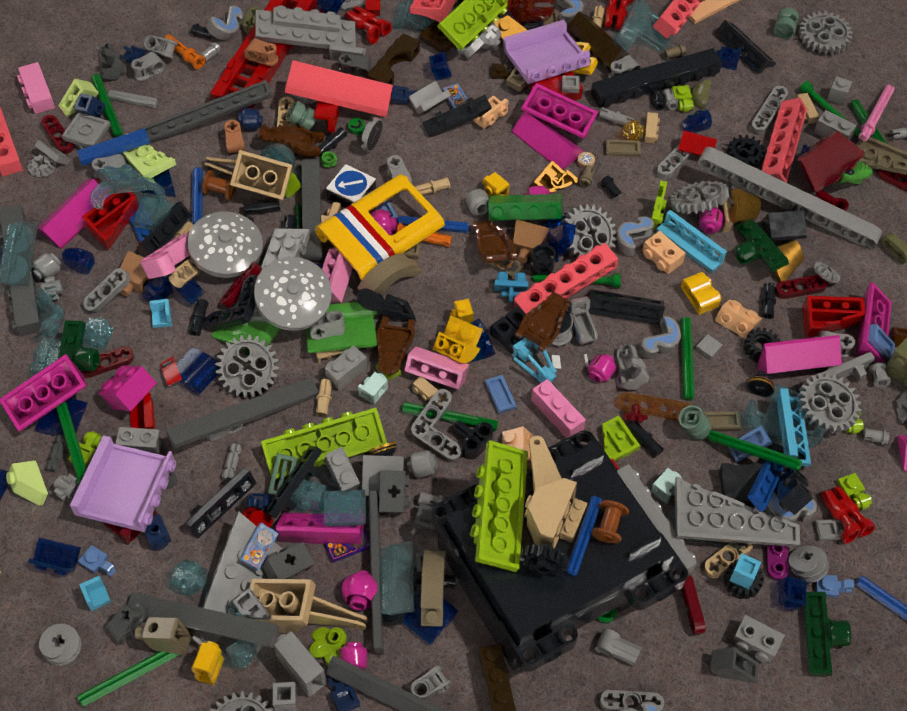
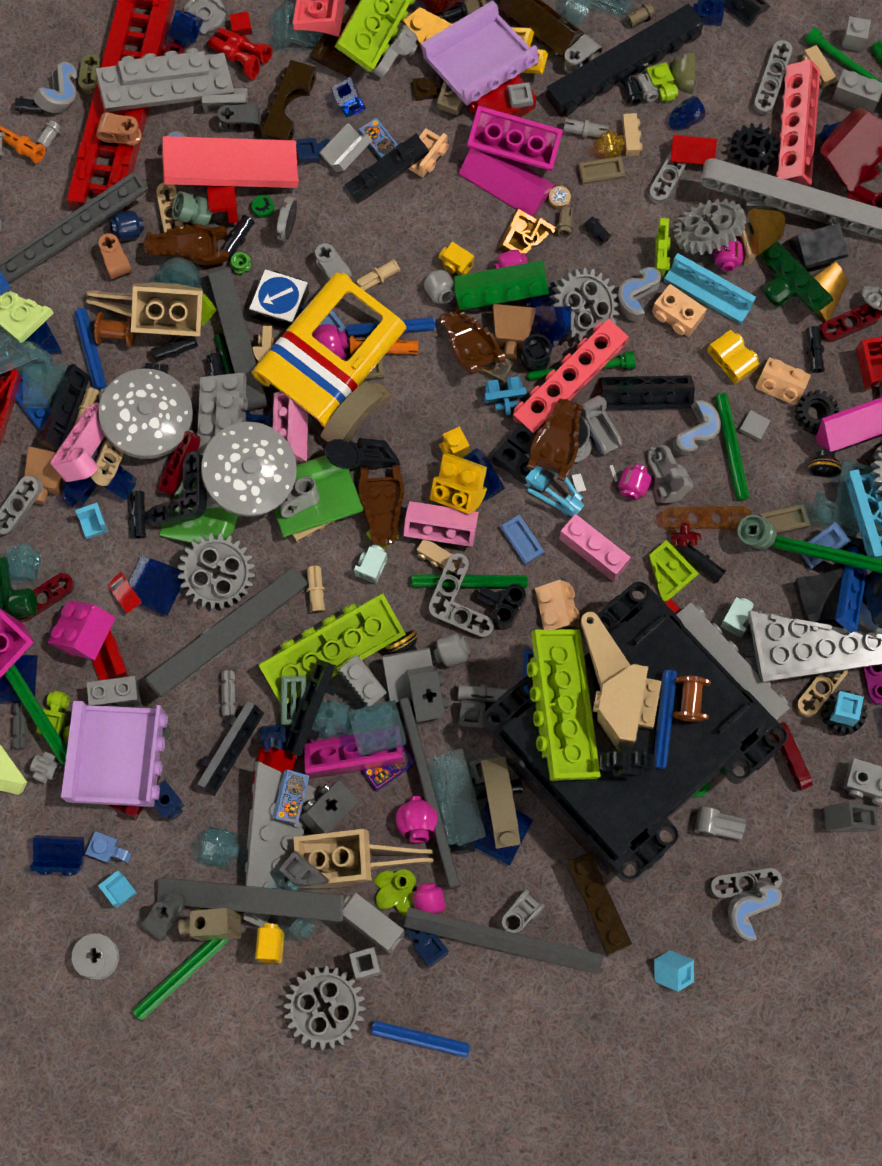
camera: 10 degrees left, 15 degrees up
(346, 367) = (333, 545): light grey brick -> none

